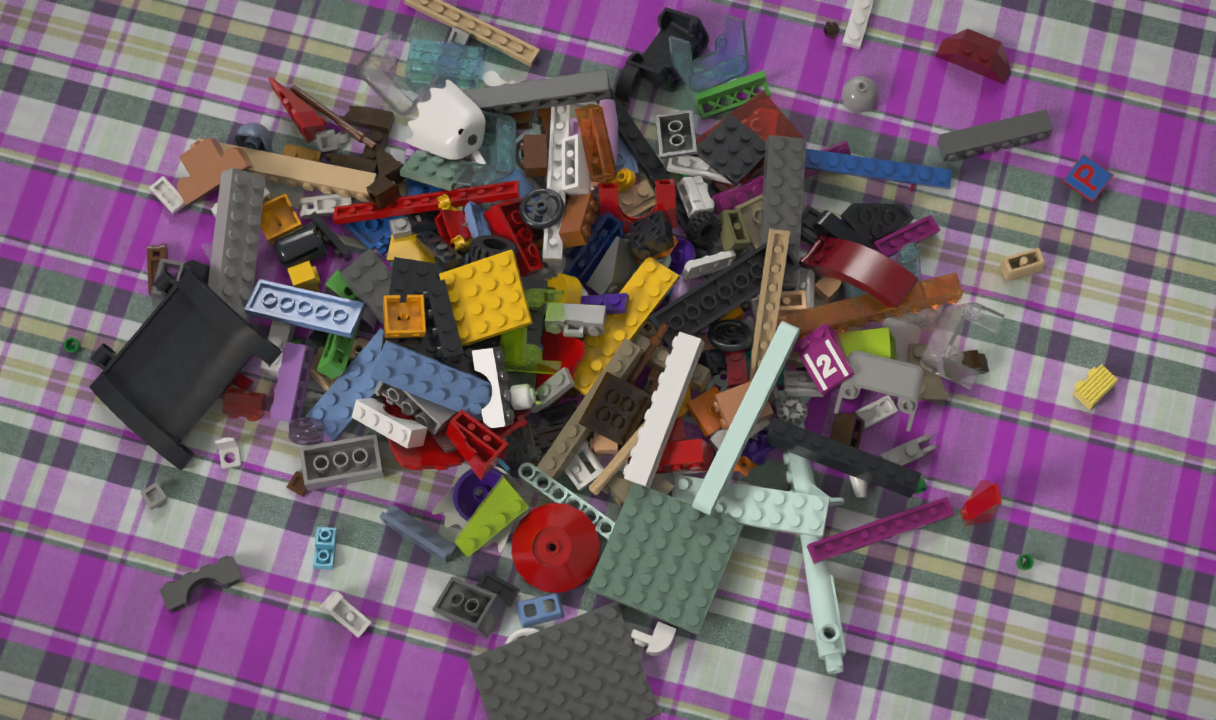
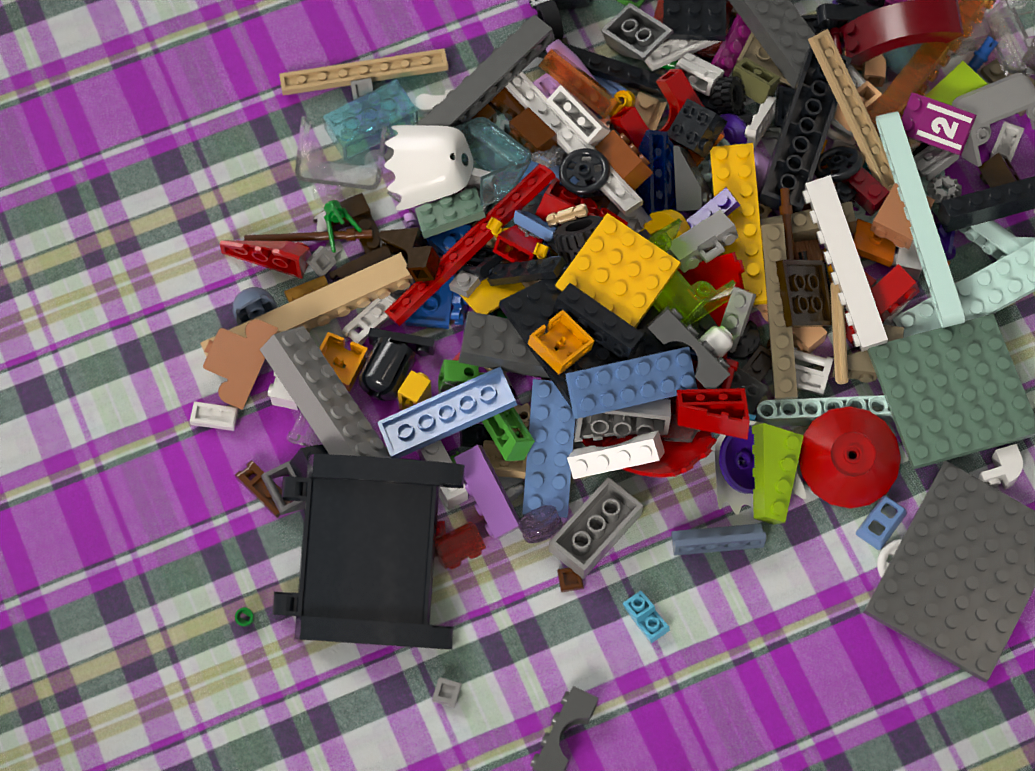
camera: 40 degrees left, 5 degrees down
(226, 446) = (475, 595): white bracket -> none
(345, 613) = (716, 656): white bracket -> none
(360, 114) = (336, 213): none -> green plant
(470, 607) = (821, 565): dark grey slope -> none
(496, 585) = (831, 531): black plate -> none
(499, 231) = (567, 215): none -> tan axle
(536, 181) = (549, 157): none -> clear piece
(914, 334) = (982, 54): none -> blue pin

